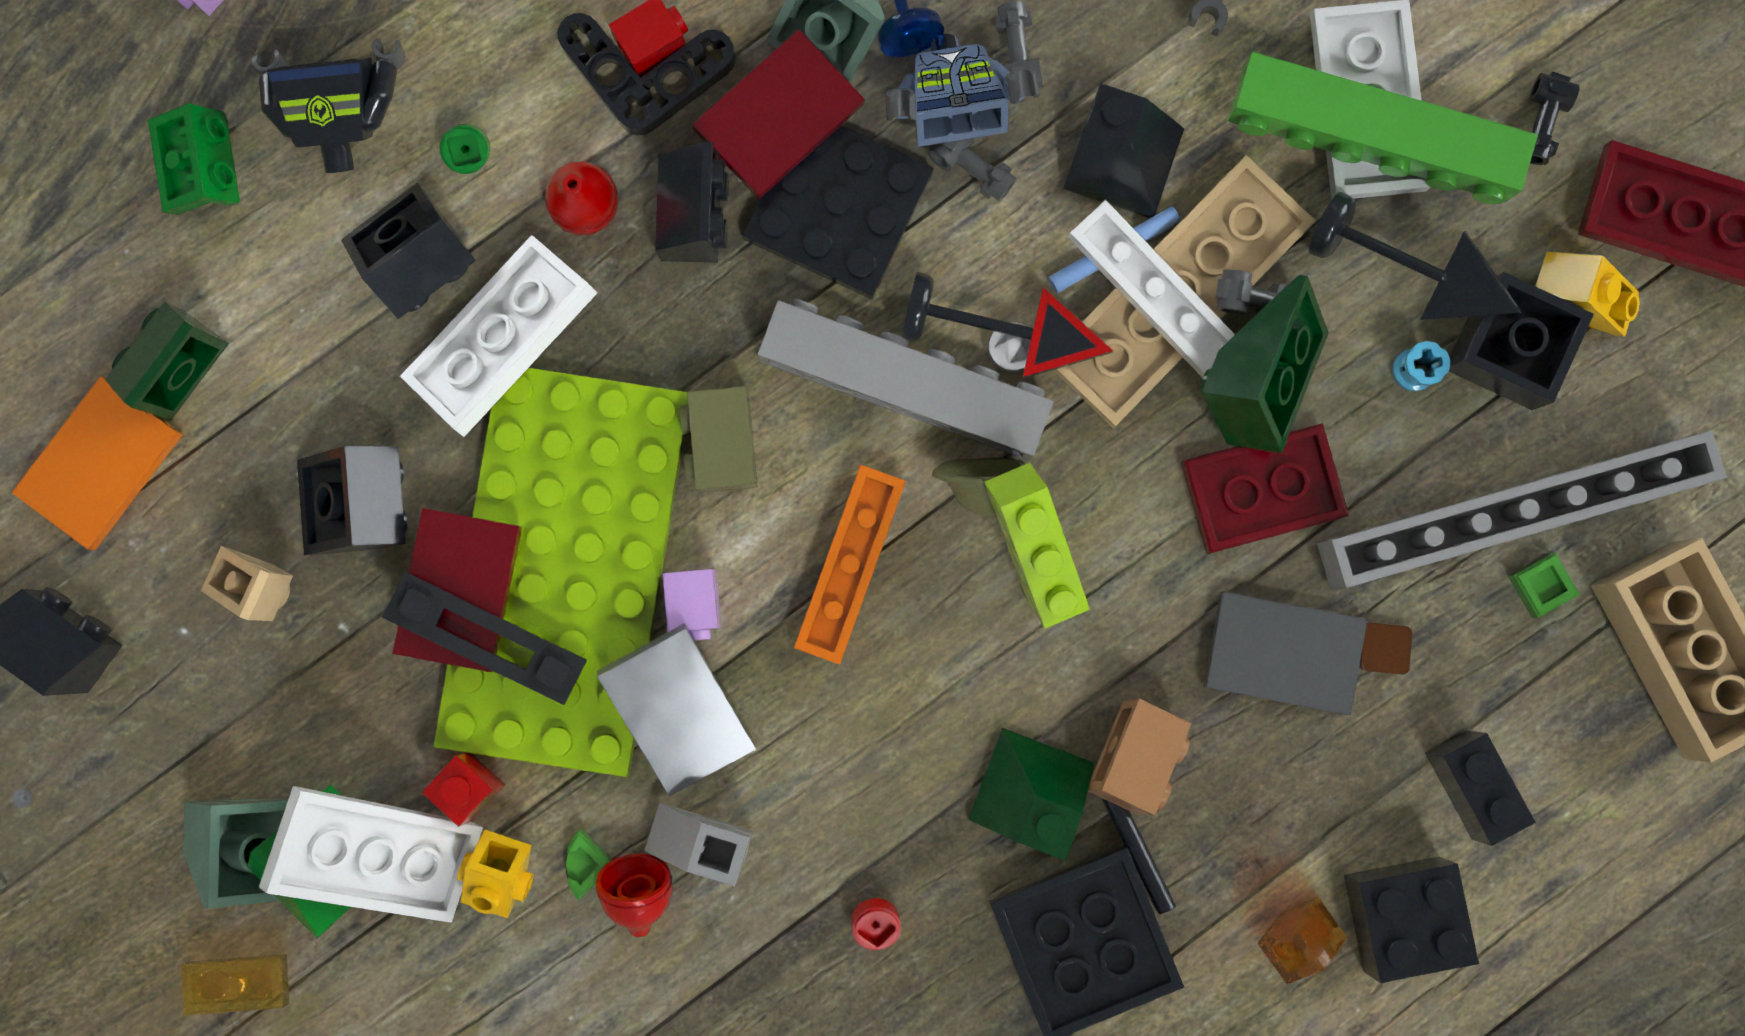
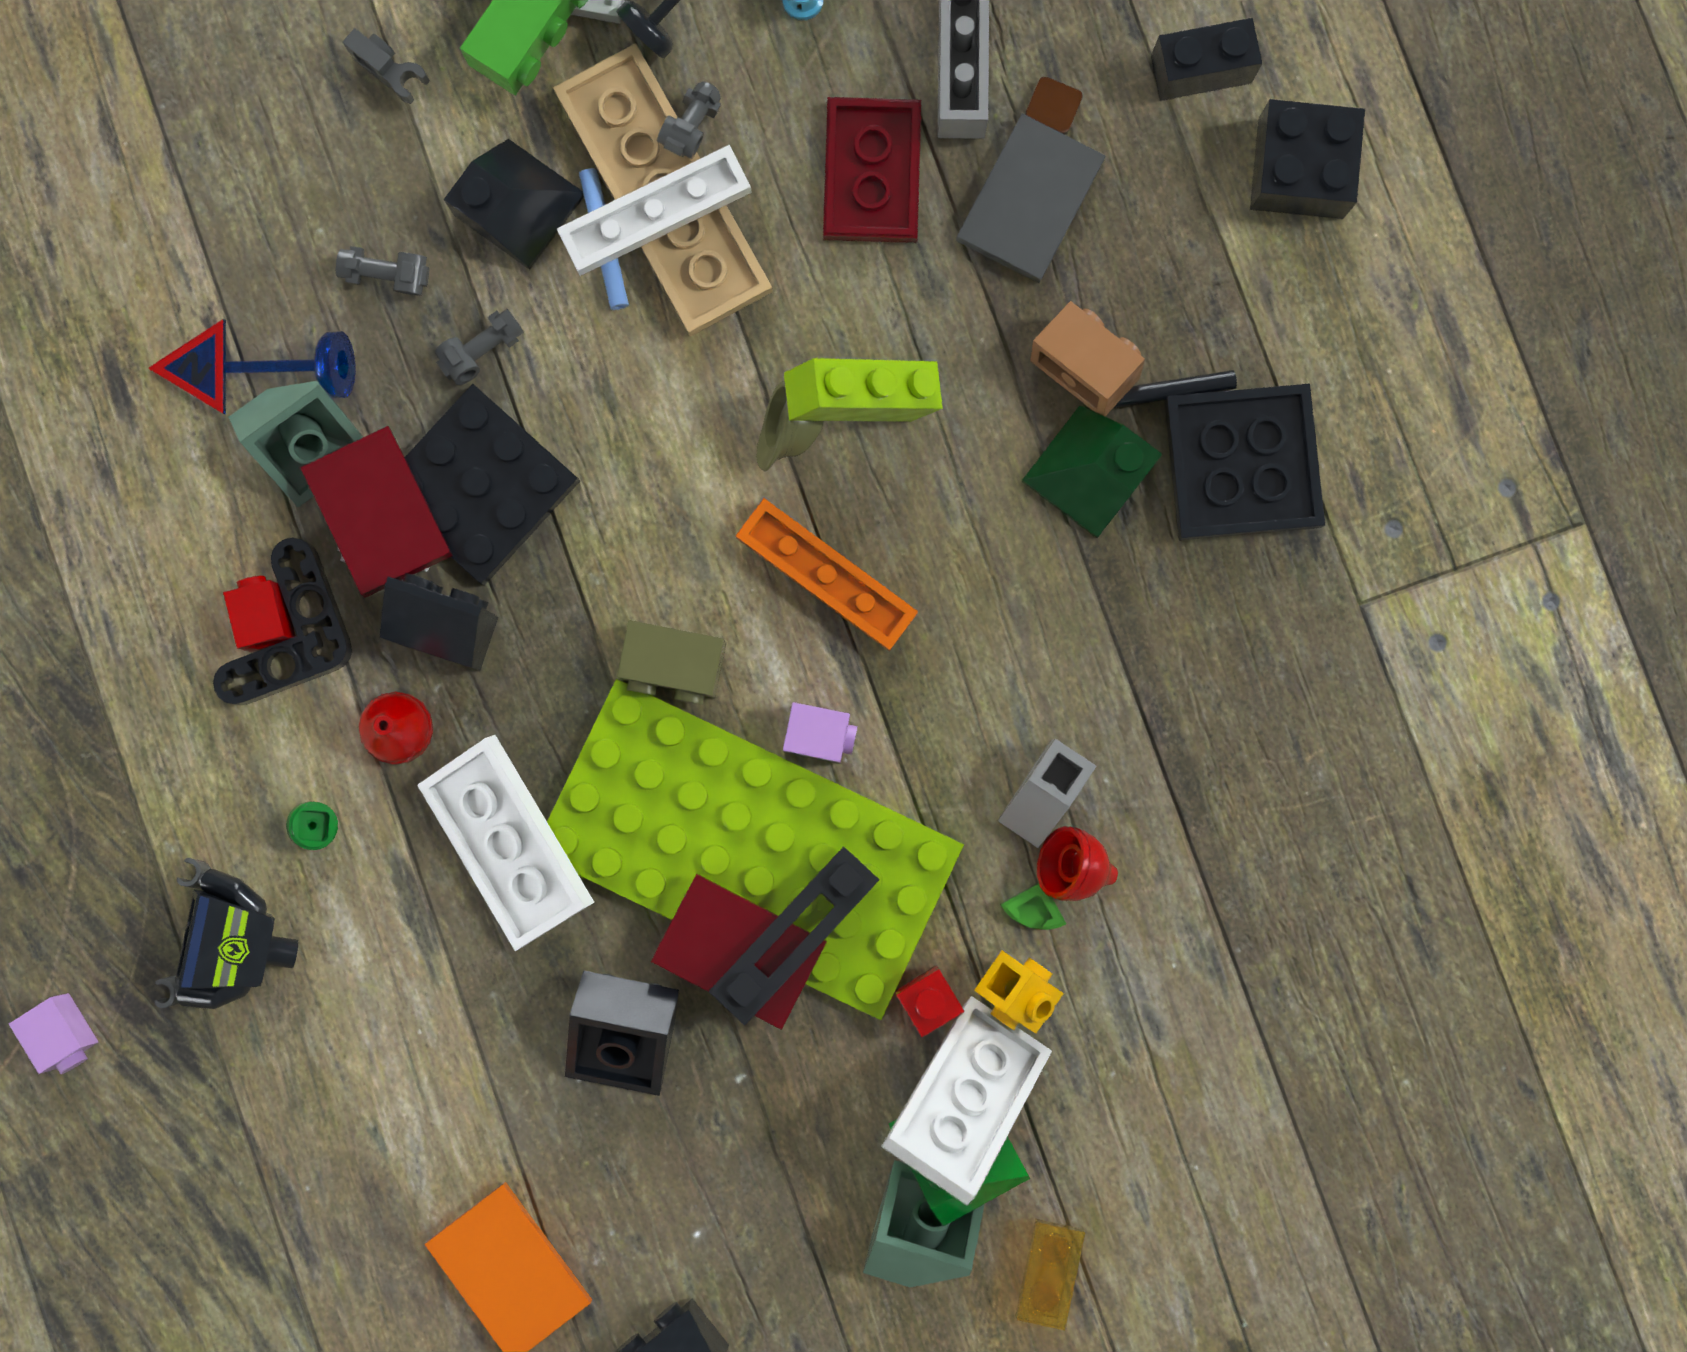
camera: 70 degrees left, 0 degrees up
(165, 362) = (429, 1175): dark green slope -> none
(193, 158) = (238, 1094): green bracket -> none
(247, 585) = (672, 1153): tan slope -> none
(407, 251) = (394, 908): black slope -> none
(676, 709) = (914, 776): tile -> none
(875, 924) = (1169, 651): red tile -> none
(904, 379) = (668, 469): light grey brick -> none
(958, 93) = (410, 334): torso -> none
(1008, 351) = (667, 362): white tile -> none
(1055, 340) = (673, 317): black piece -> none
(1267, 369) = (763, 130): dark green slope -> none
(1302, 940) = (1298, 262): clear orange brick -> none

